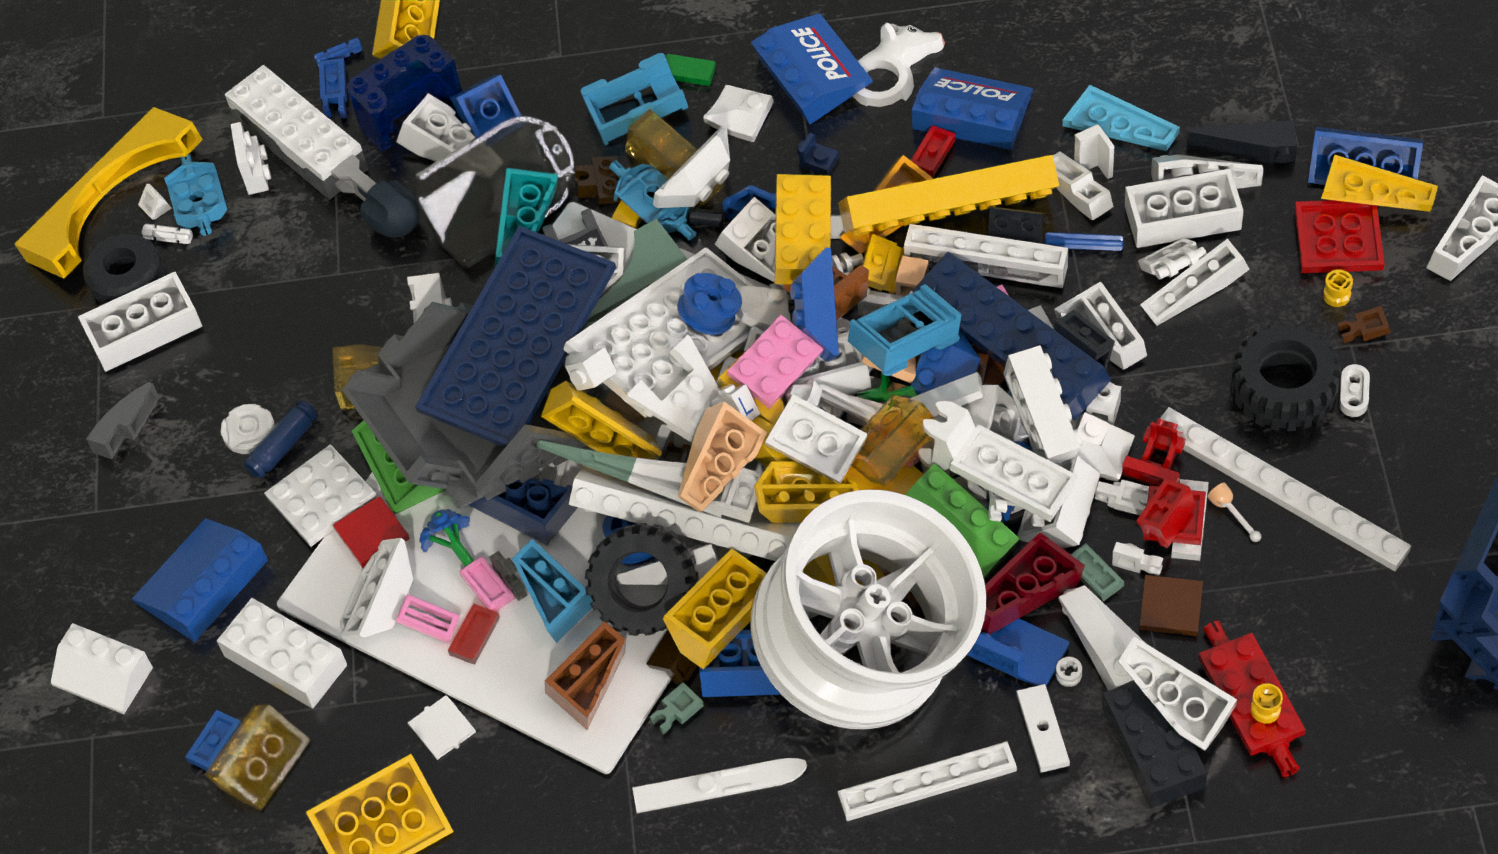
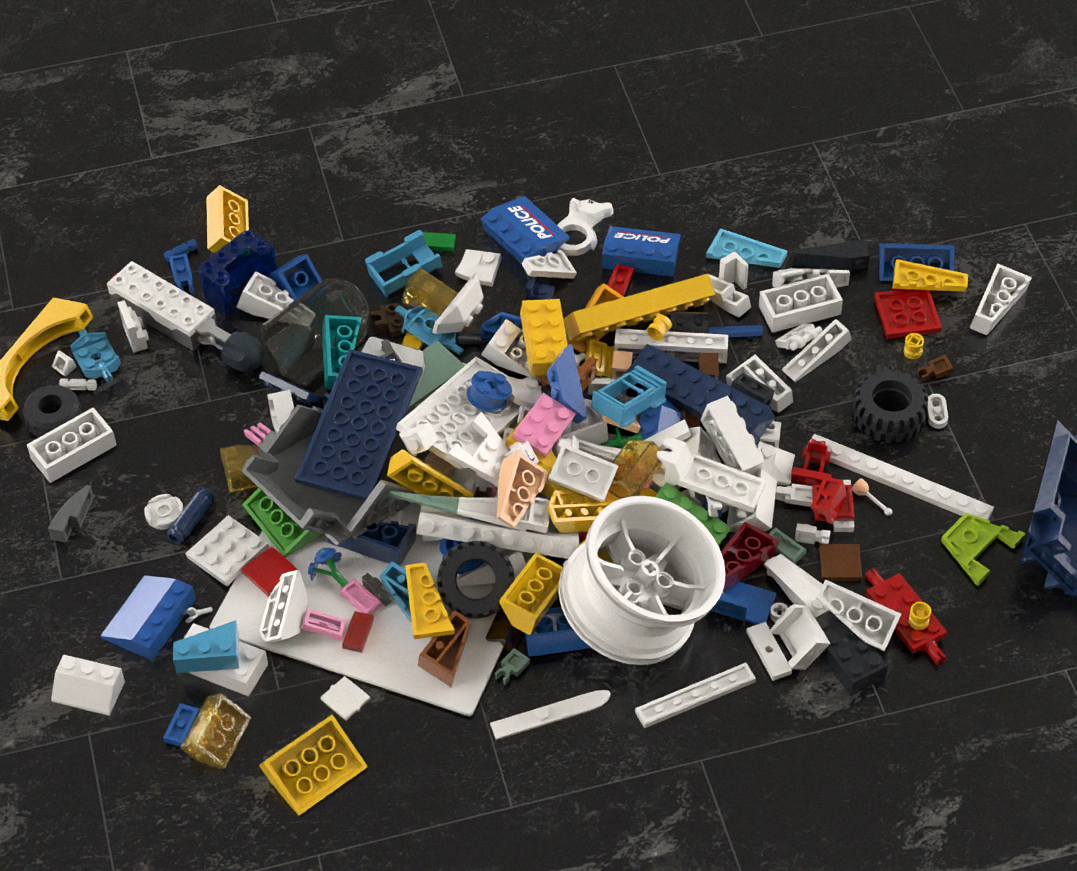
camera: 15 degrees left, 5 degrees down
(261, 581) = (194, 613): none -> white hand
(261, 641) = (208, 650): none -> dark azure wedge
(392, 326) = (261, 431): none -> bright pink tile
(457, 276) = (296, 391): none -> plate
(565, 612) = (426, 608): none -> yellow wing
(838, 120) = (549, 266): none -> white wing
(971, 226) = (658, 328): none -> yellow wheel
(1032, 292) = (709, 364): none -> reddish brown slope
(1091, 712) = (801, 636): none -> white panel
(1370, 588) = (971, 537): none -> lime wing

